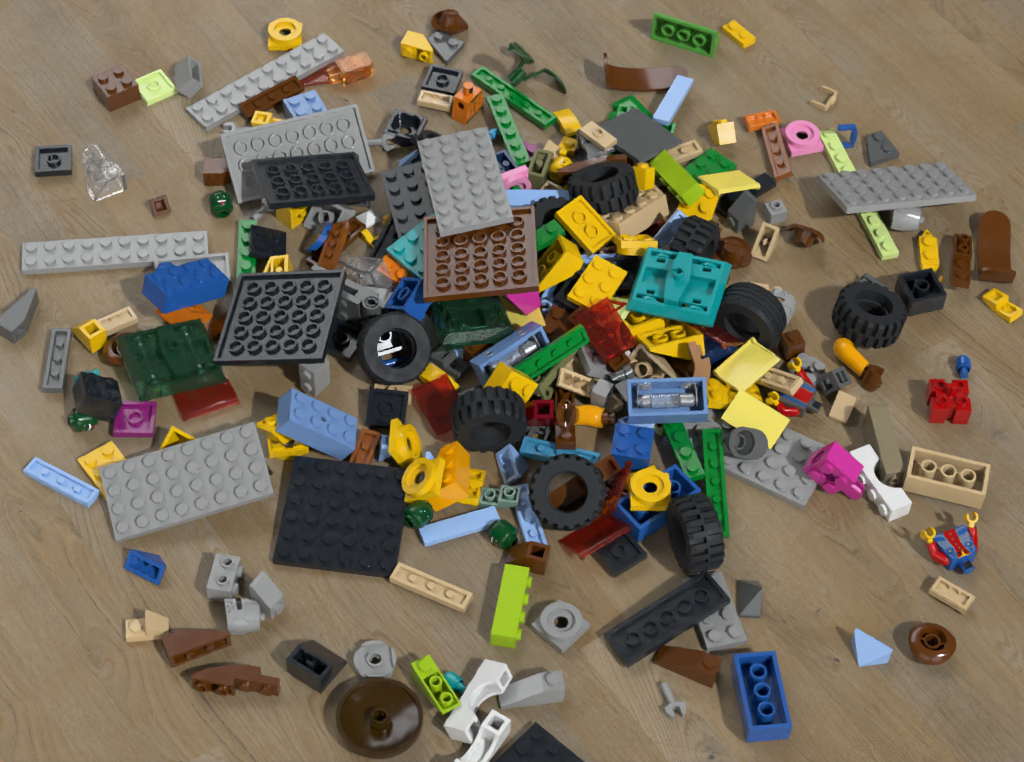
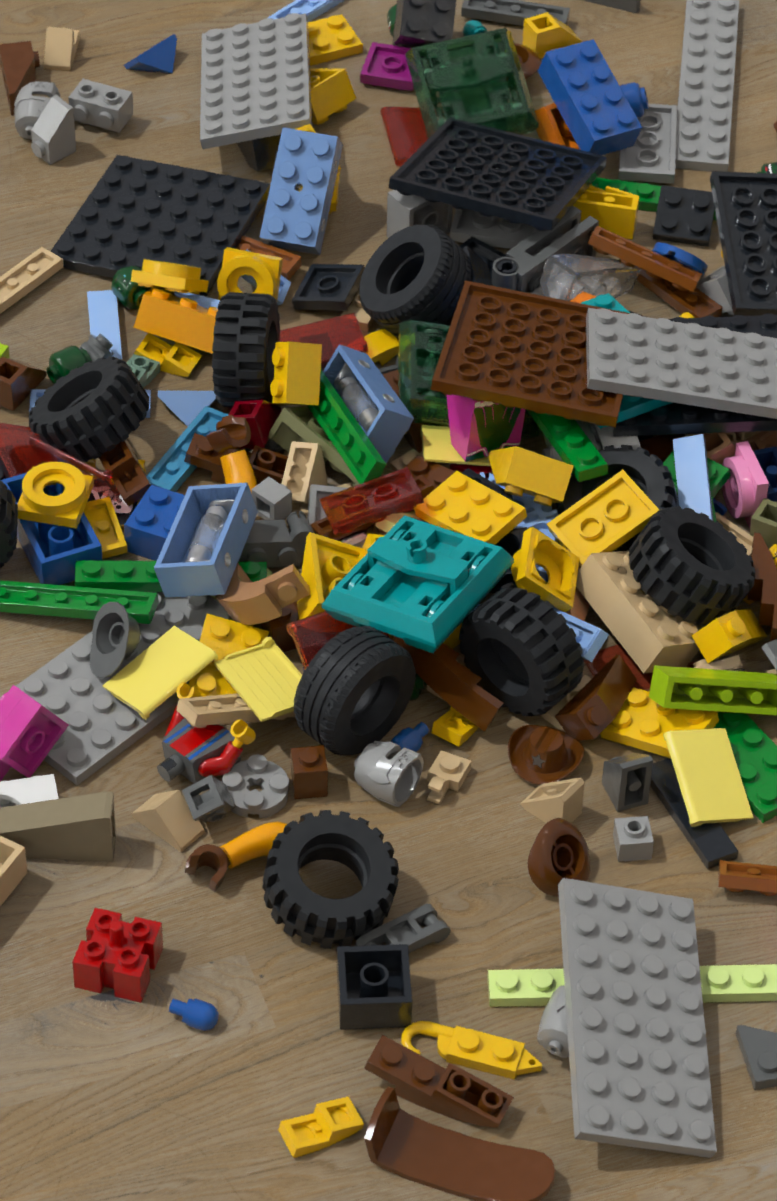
camera: 105 degrees right, 5 degrees down
(487, 517) = (97, 347): none -> dark grey plate

